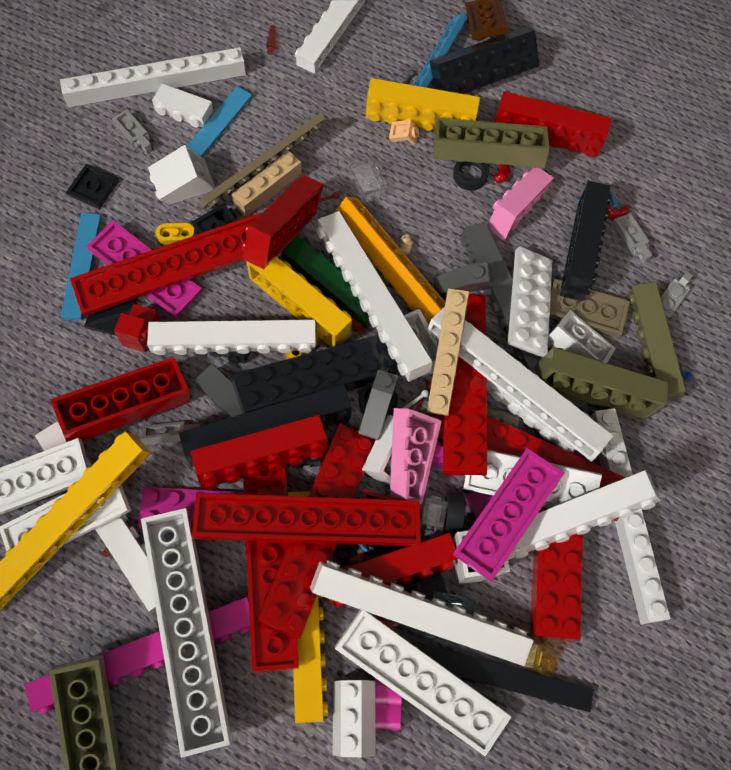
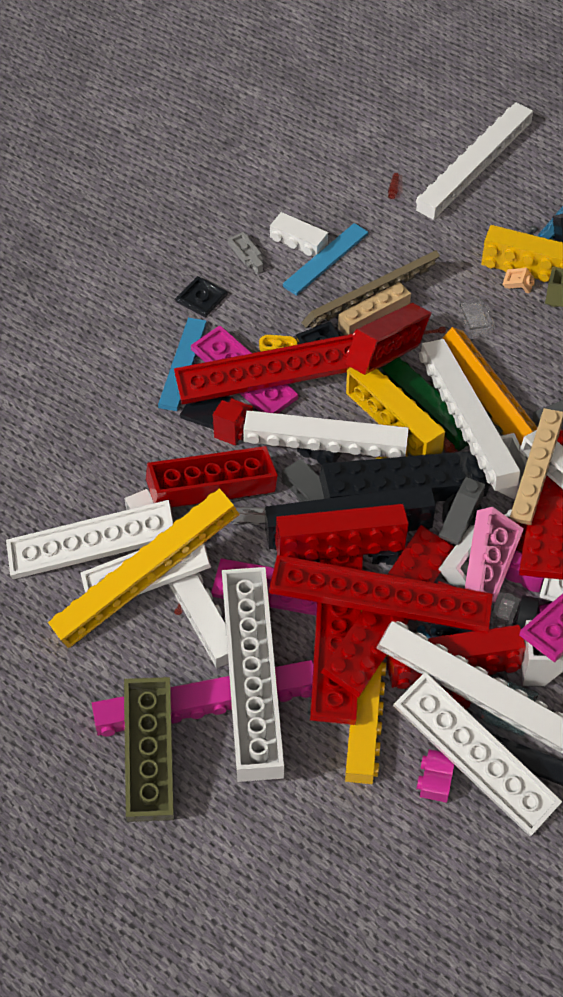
camera: 15 degrees right, 15 degrees down
(150, 76) = (269, 205): white brick -> none
(180, 176) = (289, 294): white slope -> none
(354, 718) = (404, 776): white slope -> none
(406, 244) = (509, 379): tan arm -> none

